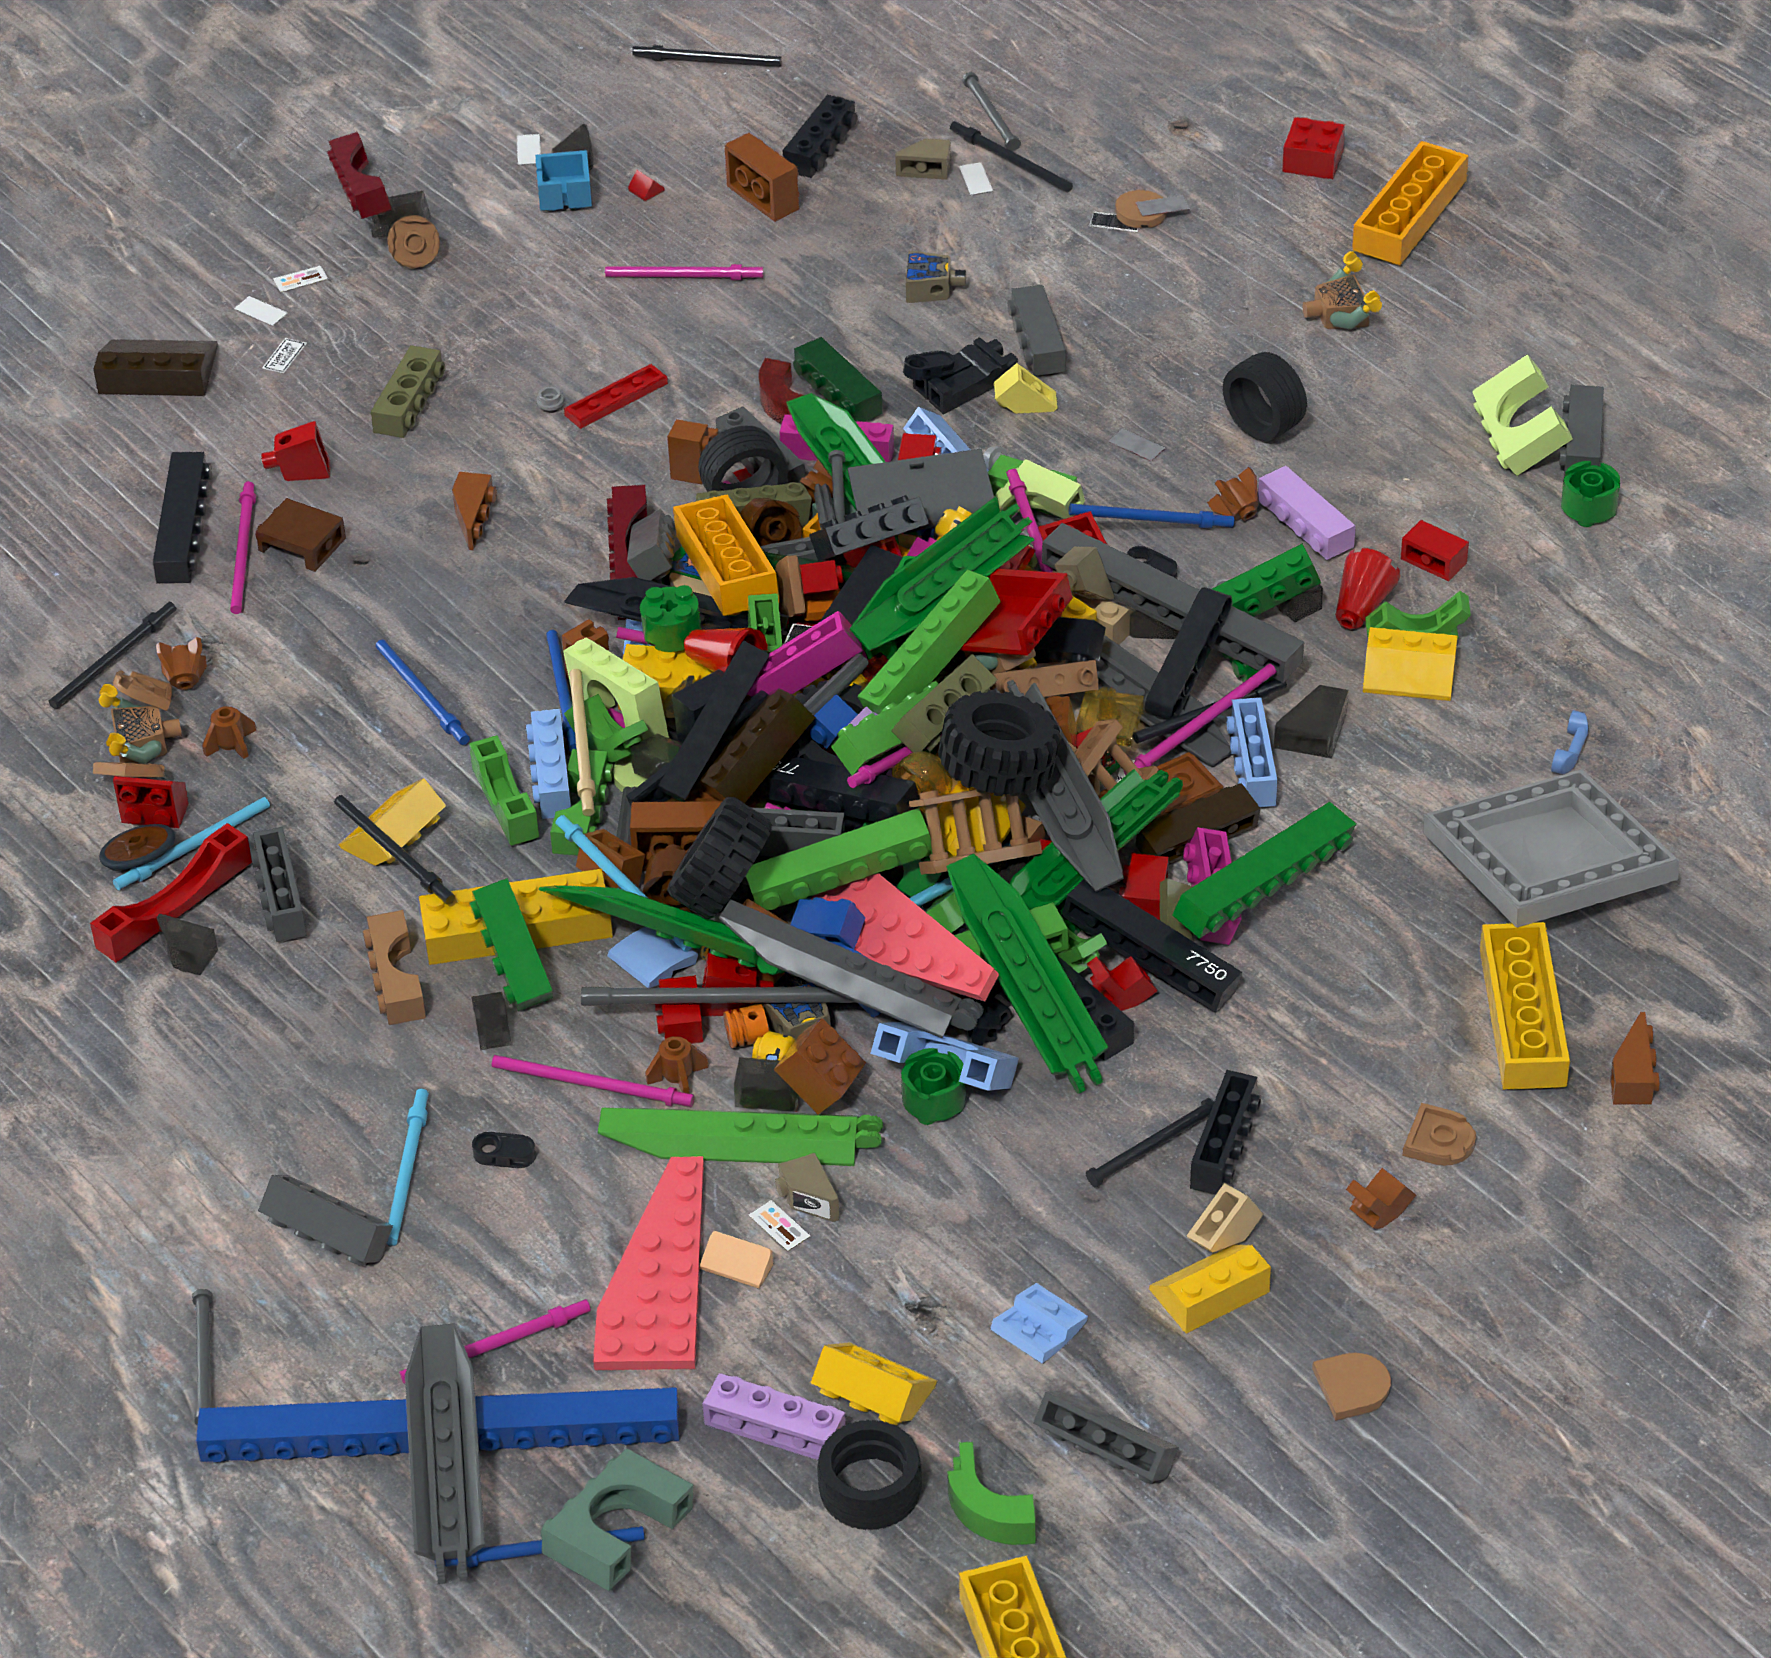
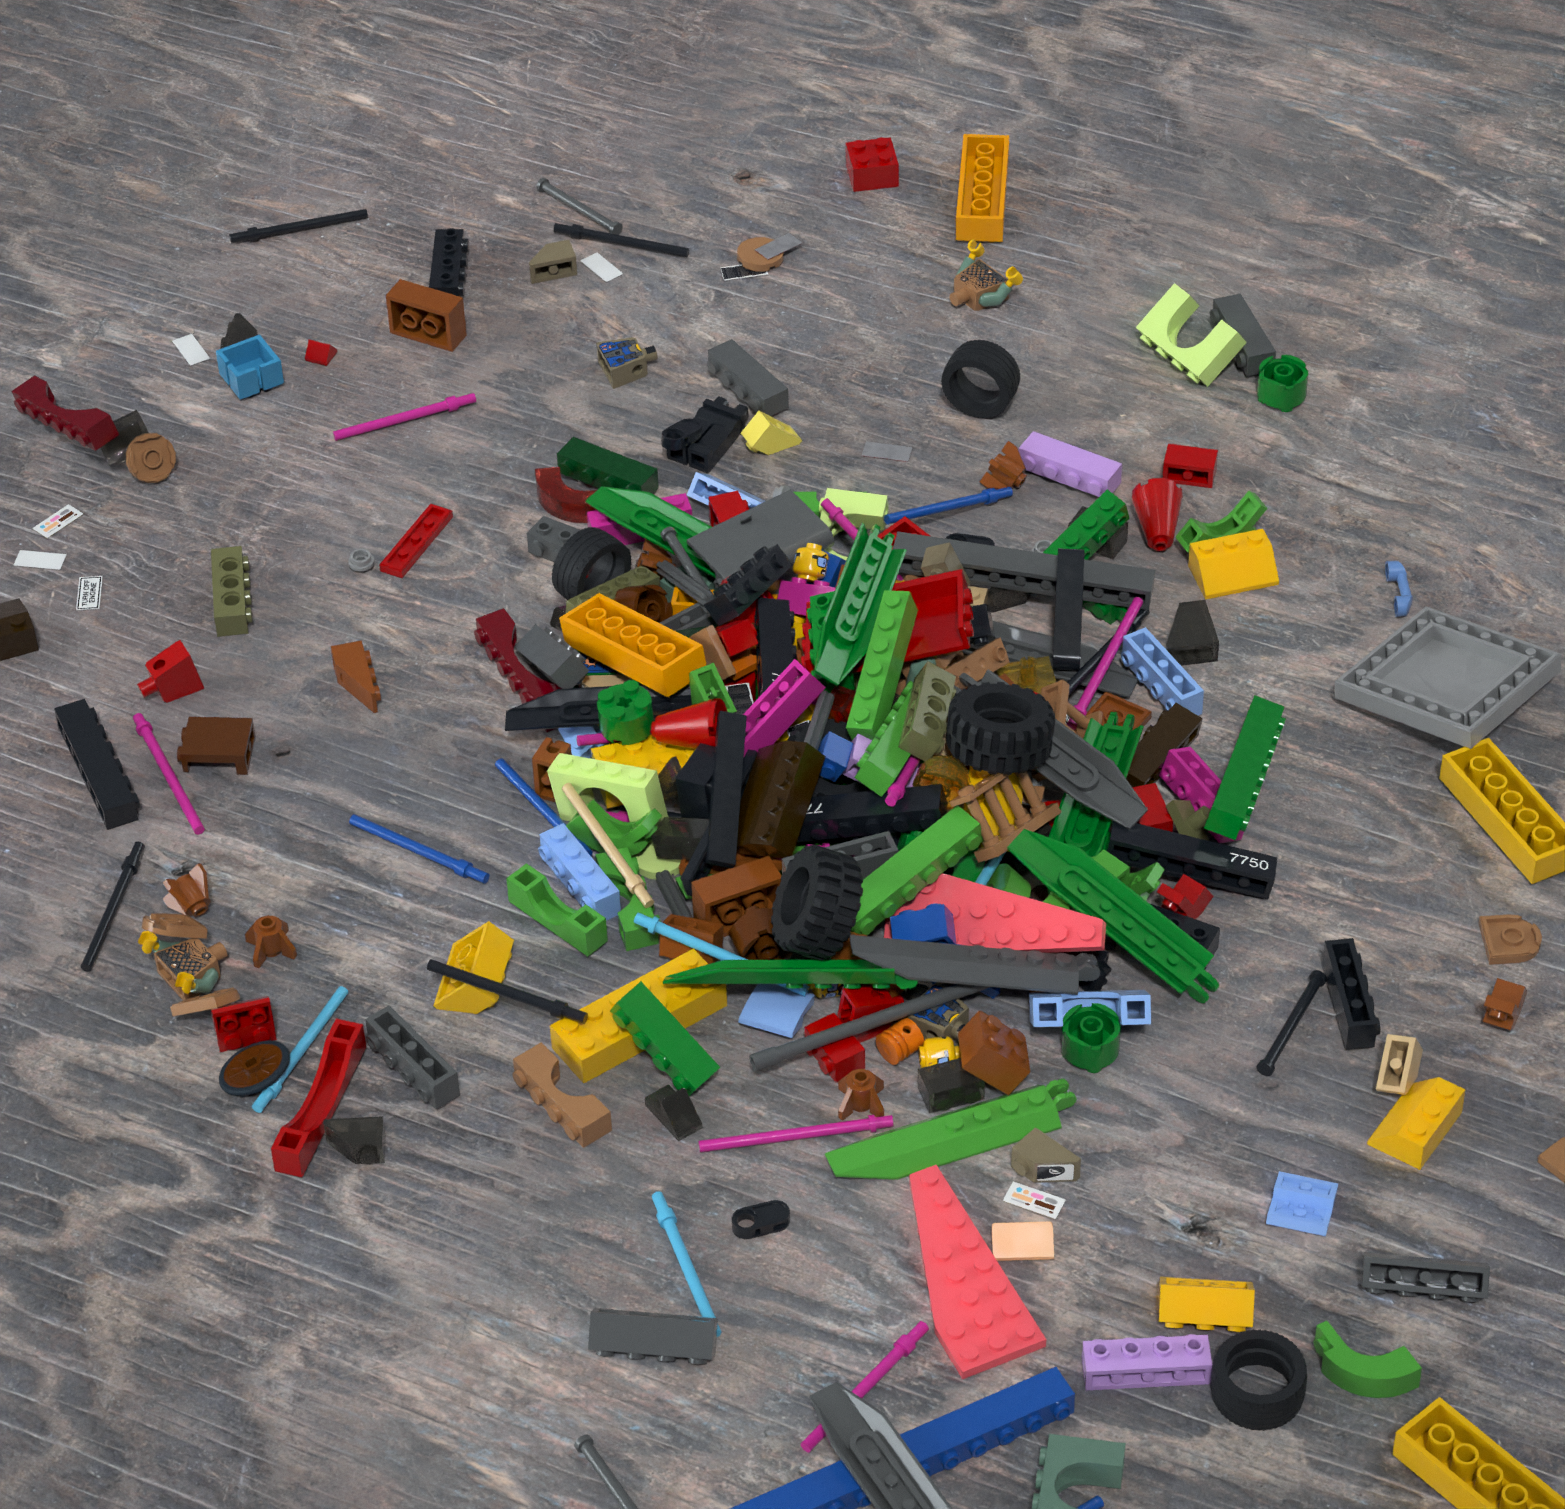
camera: 25 degrees left, 0 degrees up
(685, 446) = (523, 568): dark orange brick -> none

